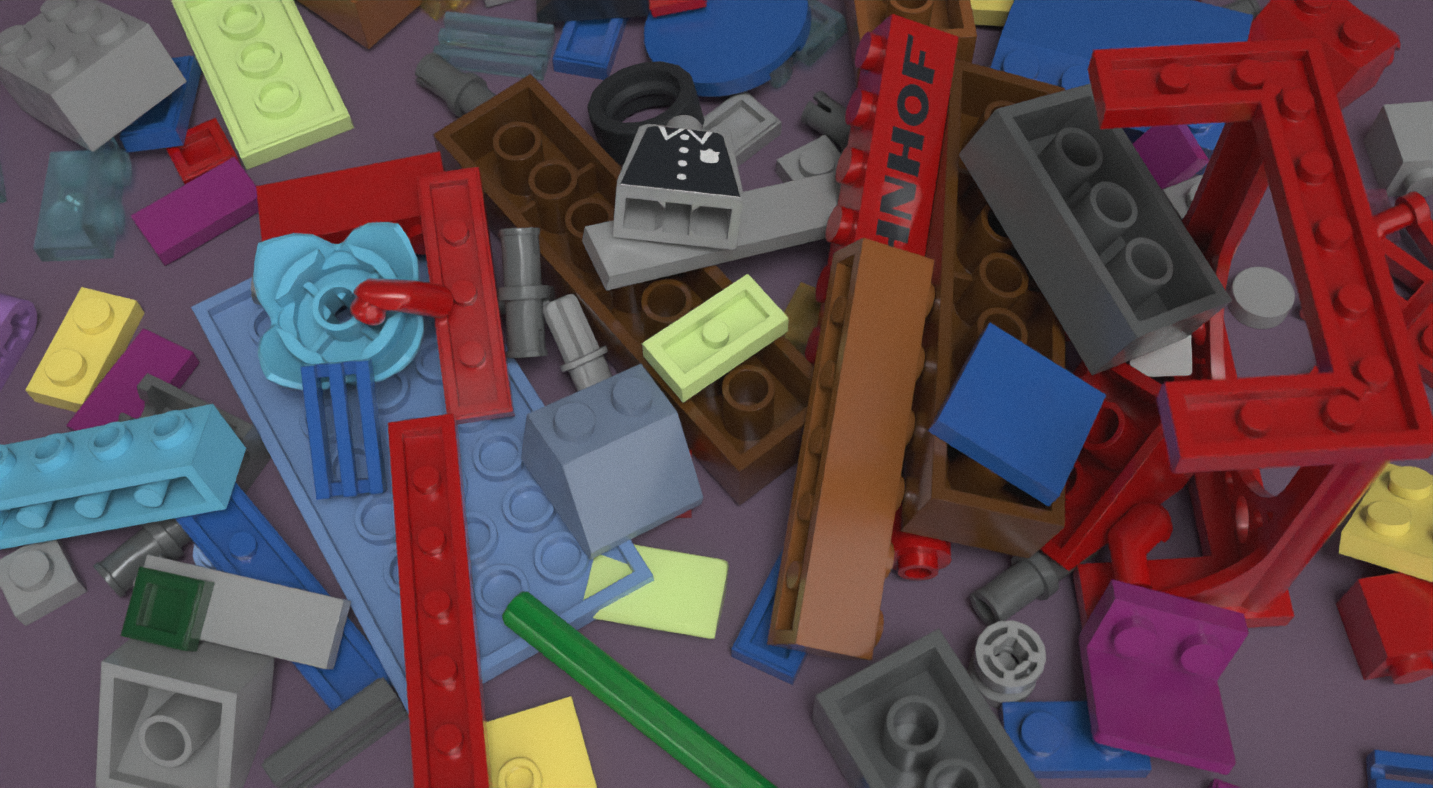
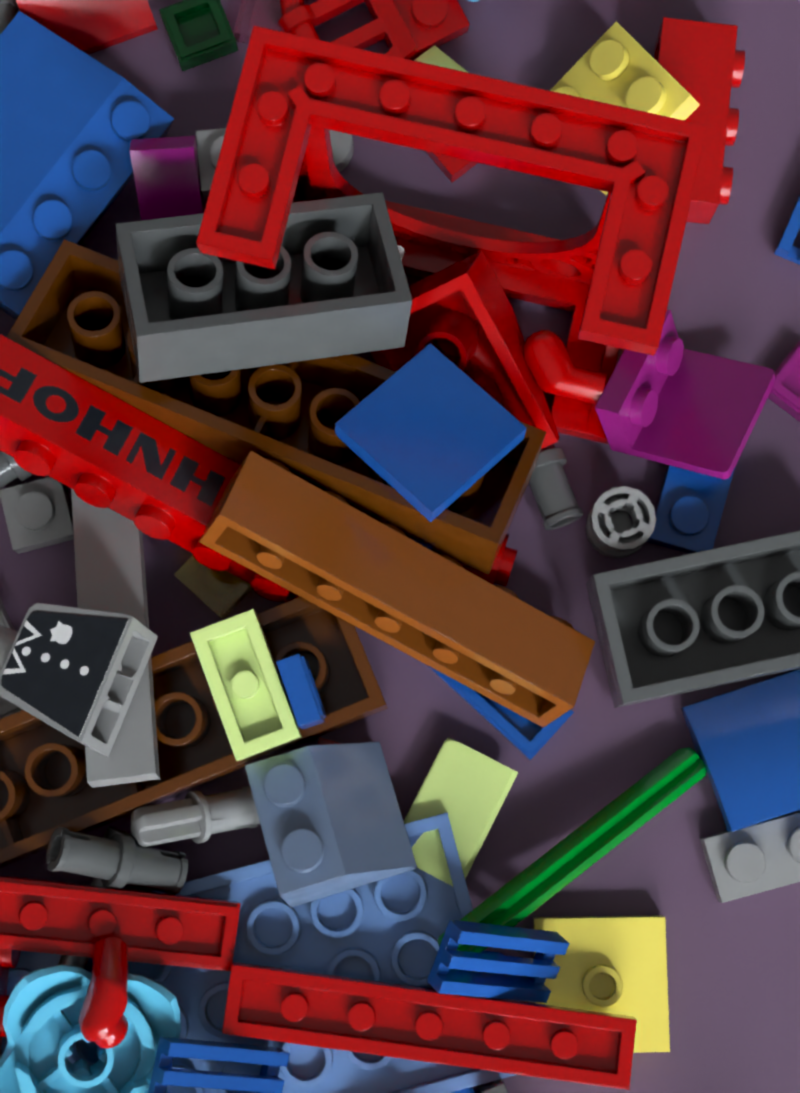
camera: 70 degrees left, 20 degrees up
(492, 657) = (490, 985): none -> blue tile
(724, 381) = (301, 691): none -> blue tile

